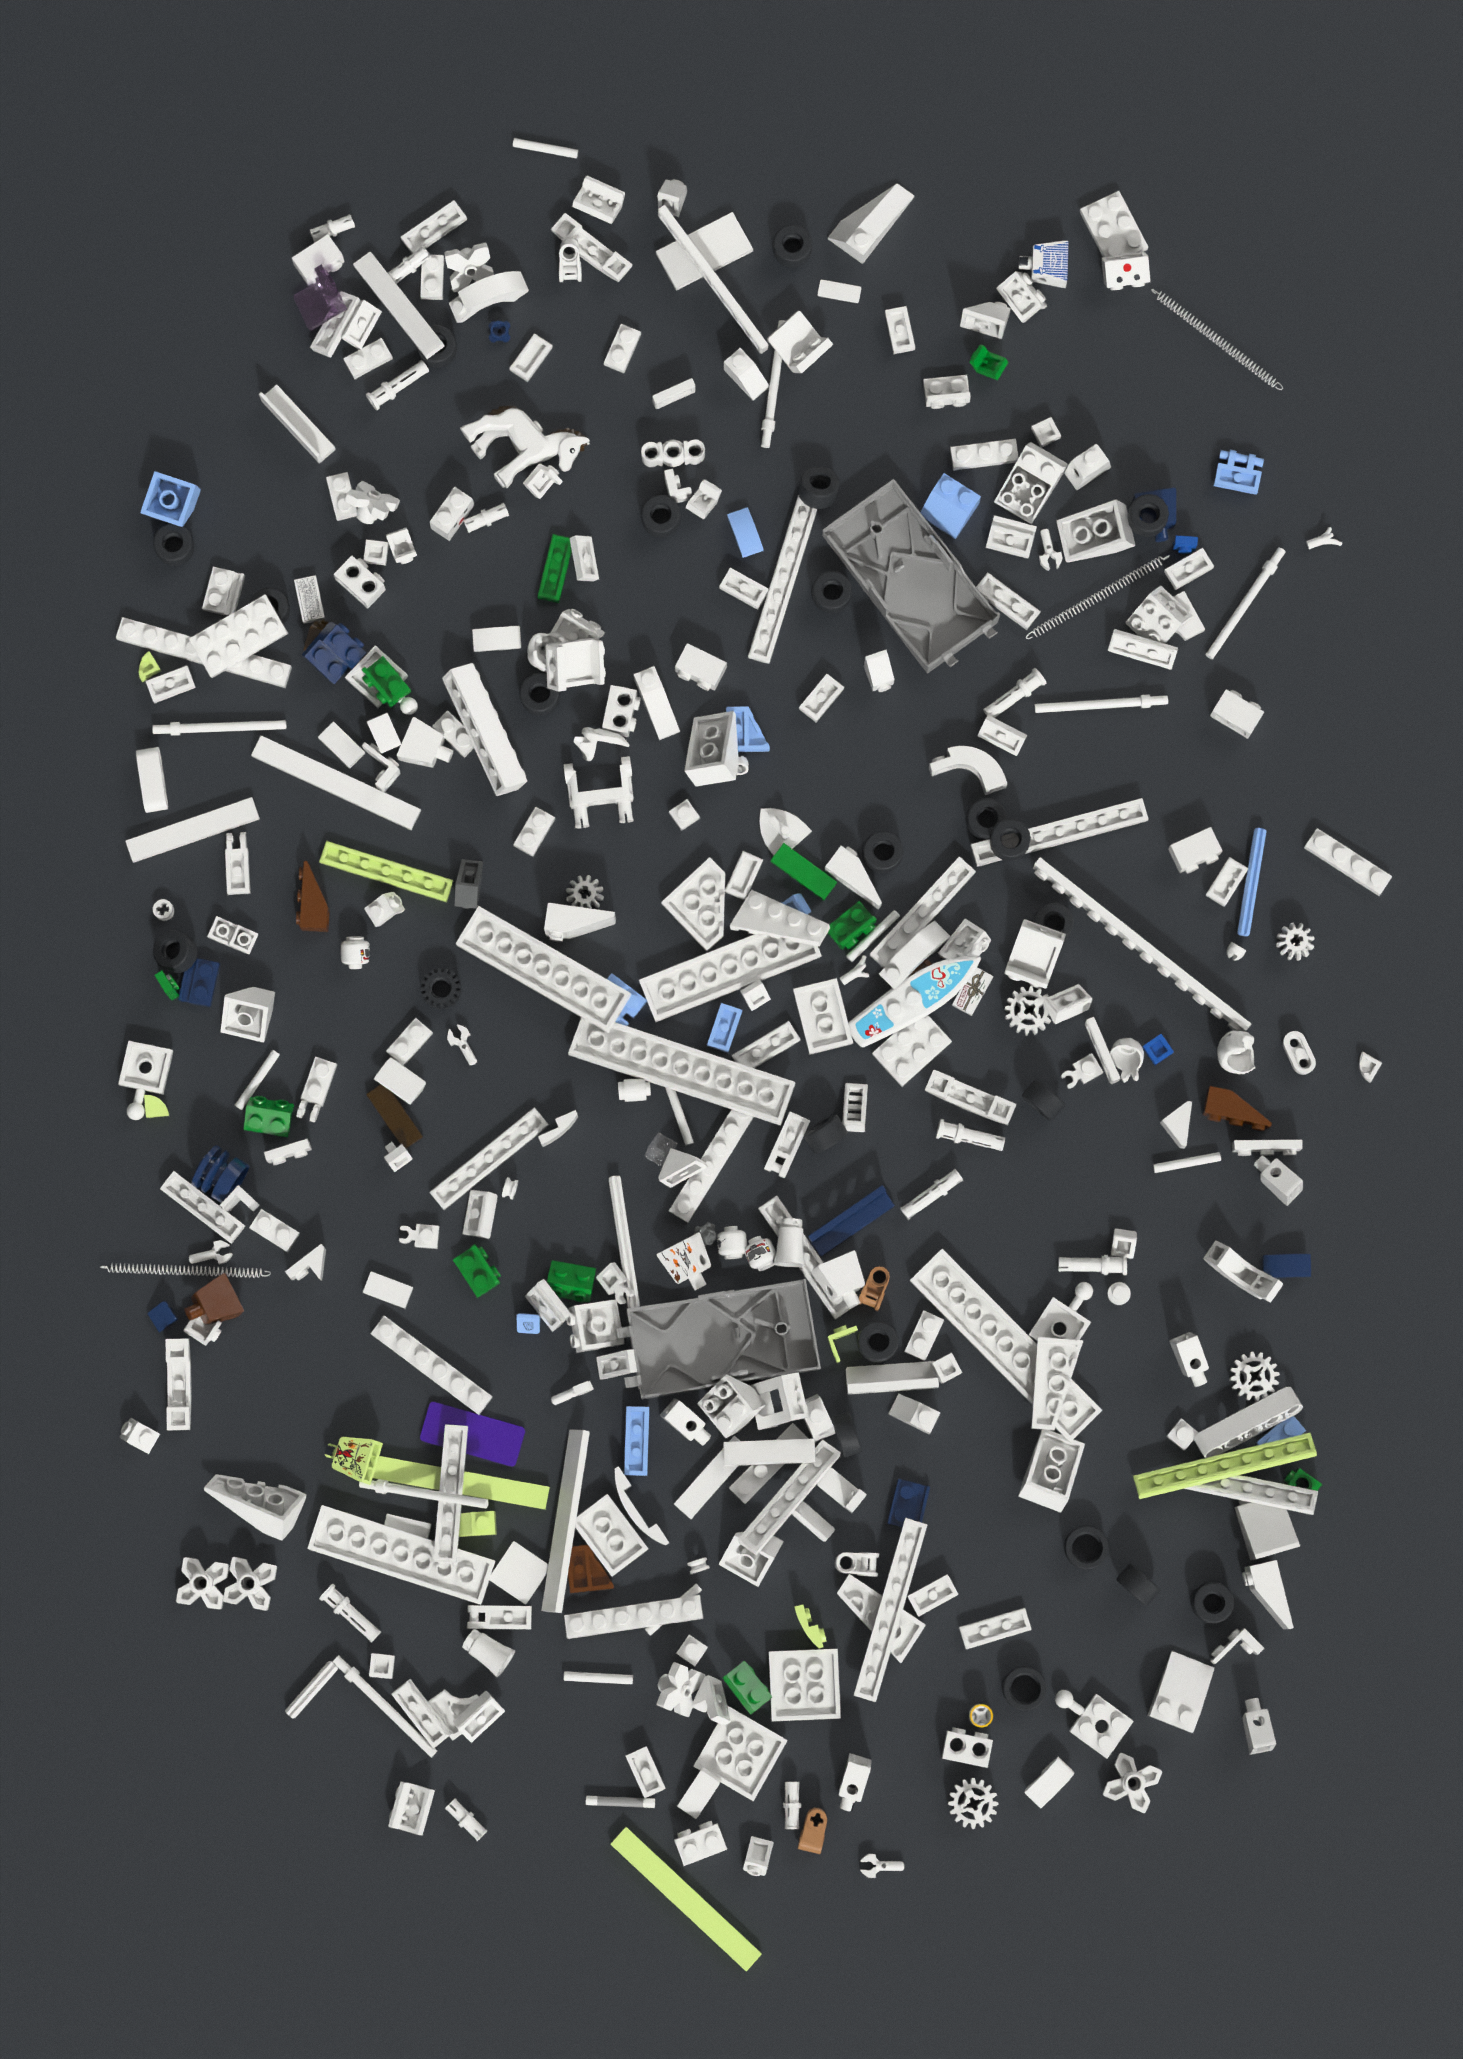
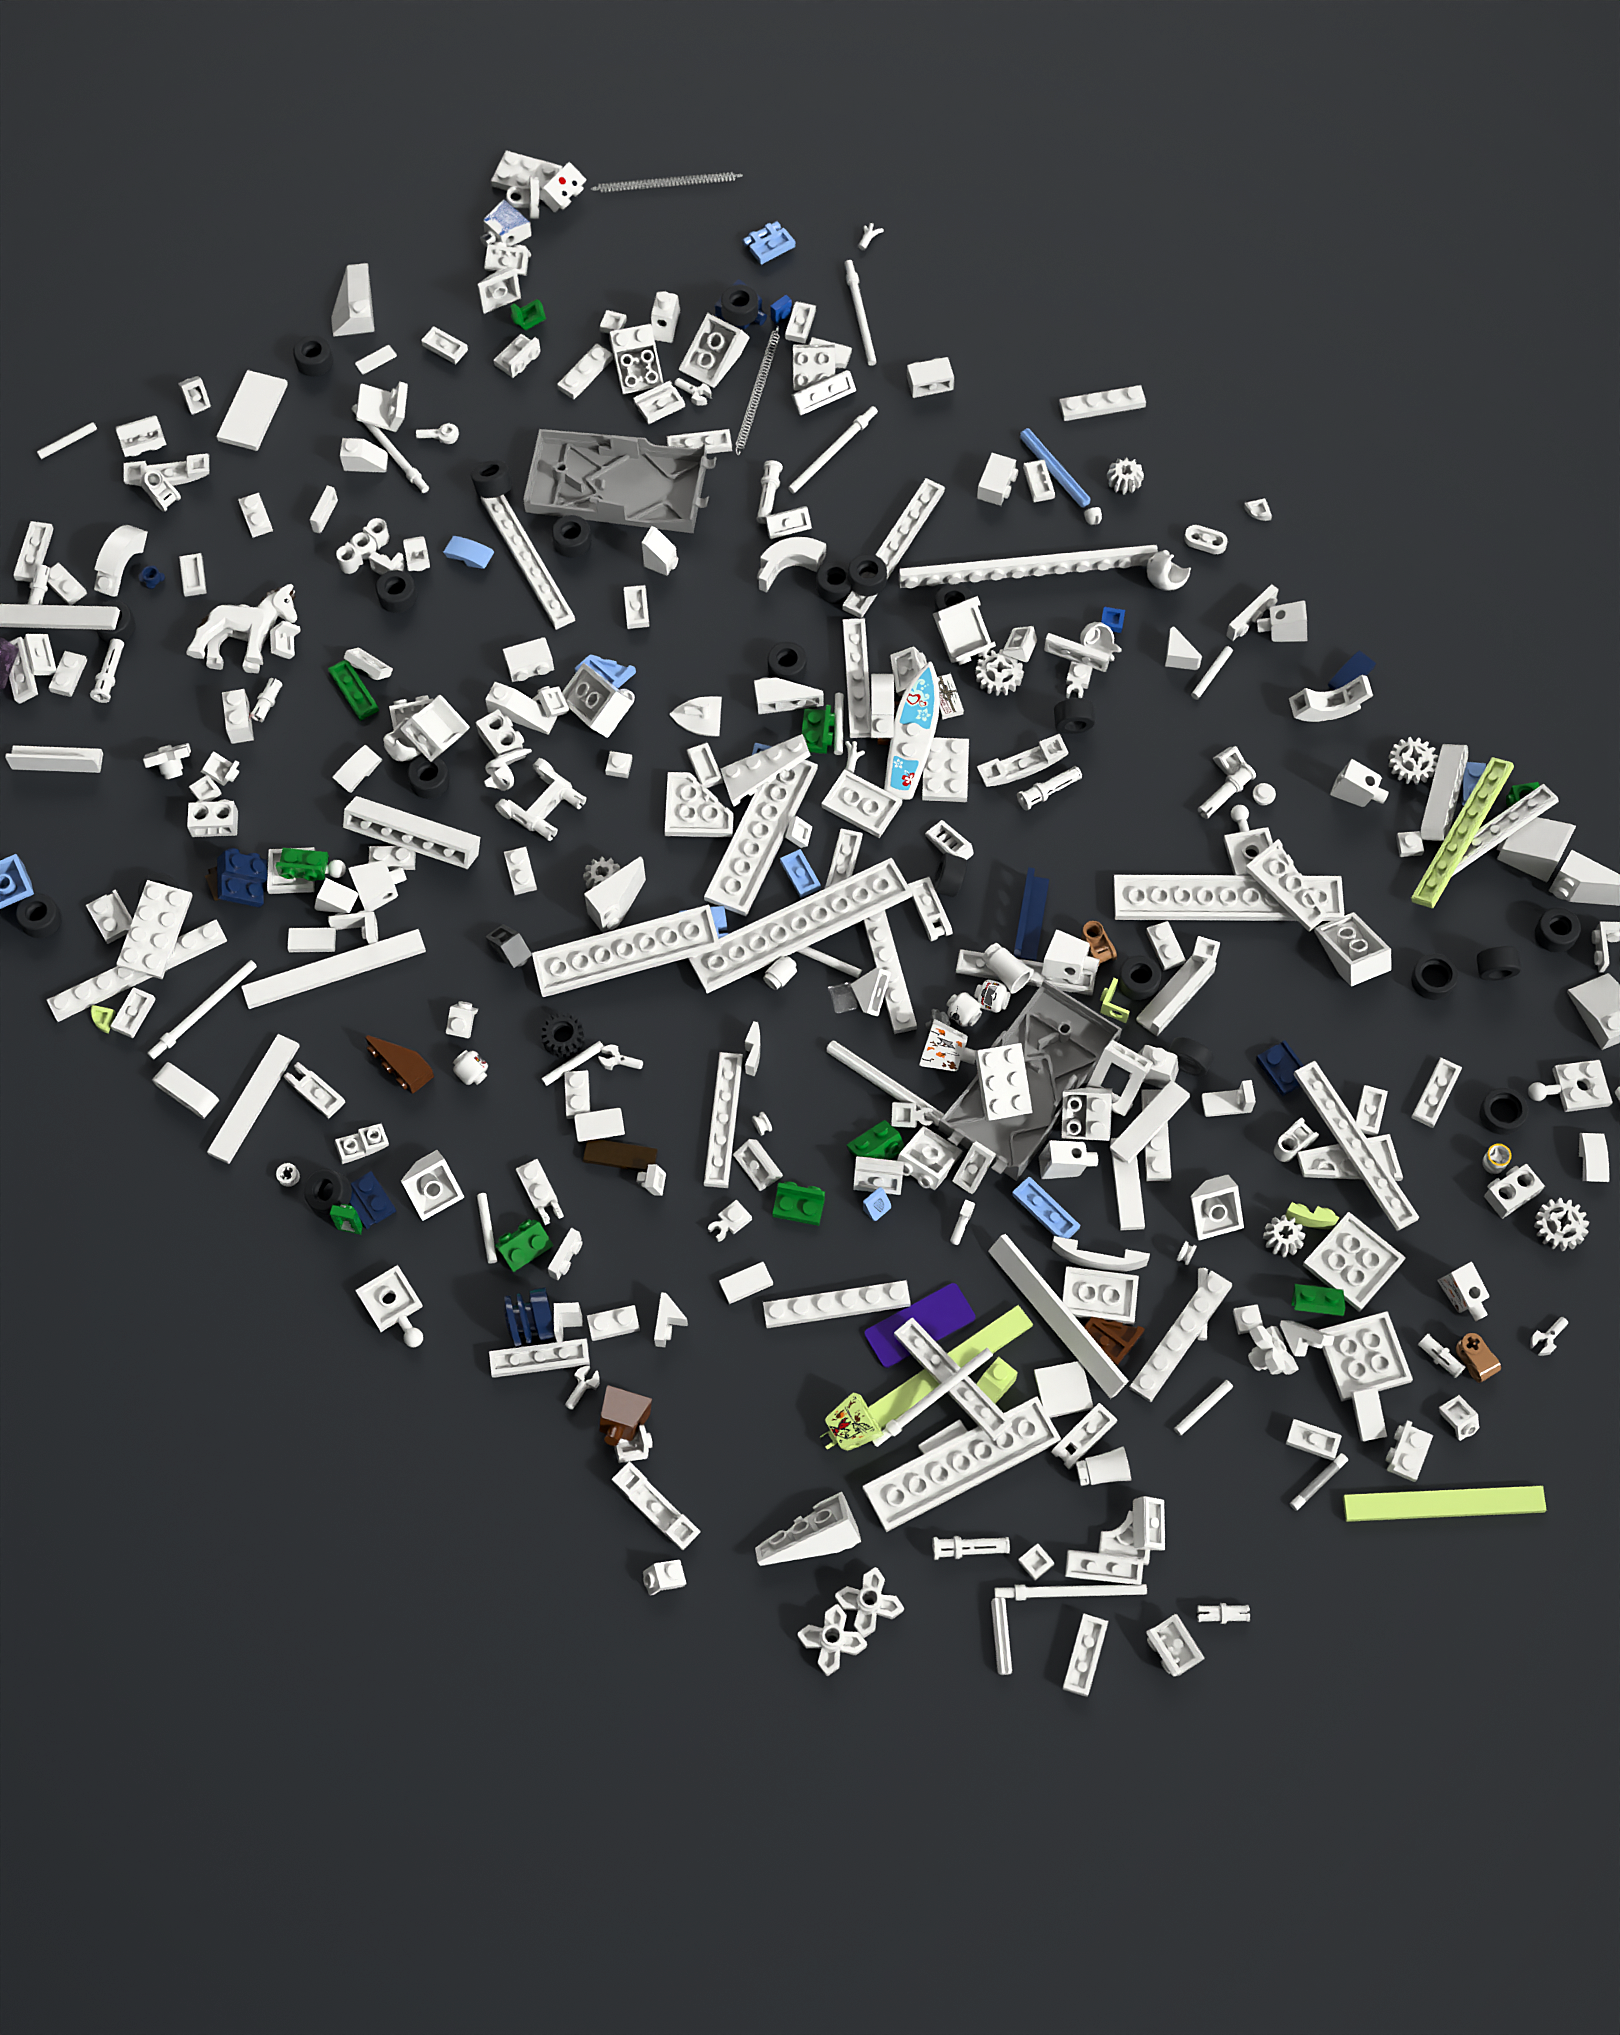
camera: 45 degrees left, 15 degrees down
(155, 1107) = (426, 1321): yellowish green tile -> none
(162, 1316) = (590, 1468): dark blue slope -> none
(184, 1270) = (570, 1420): white piece -> none
(309, 599) = (185, 865): white tile -> none
(338, 488) = (140, 777): white plate -> none
(350, 1755) = (1085, 1655): none -> white plate
(386, 871) = (435, 994): yellowish green tile -> none
(427, 1015) = (572, 1063): none -> white bar
(468, 265) = (83, 549): white plant -> none
(682, 719) = (552, 701): none -> white bracket
(697, 1325) = (1003, 1081): none -> white plate
(712, 279) = (277, 416): white tile -> none
(743, 588) = (505, 586): white plate -> none
(776, 1628) = (1288, 1228): none -> white gear
(788, 1498) = (1200, 1139): white plate -> none
(803, 871) = (744, 725): green tile -> none
(813, 1521) = (1231, 1145): white slope -> none
(827, 411) = (446, 433): none -> white plate
(914, 1413) = (1219, 1000): white slope -> none
(938, 1189) = (1067, 840): white pin -> none
(950, 505) = (596, 413): light blue slope -> none
(1088, 257) = (529, 196): none -> white tile
(1229, 1106) = (1201, 610): reddish brown slope -> none

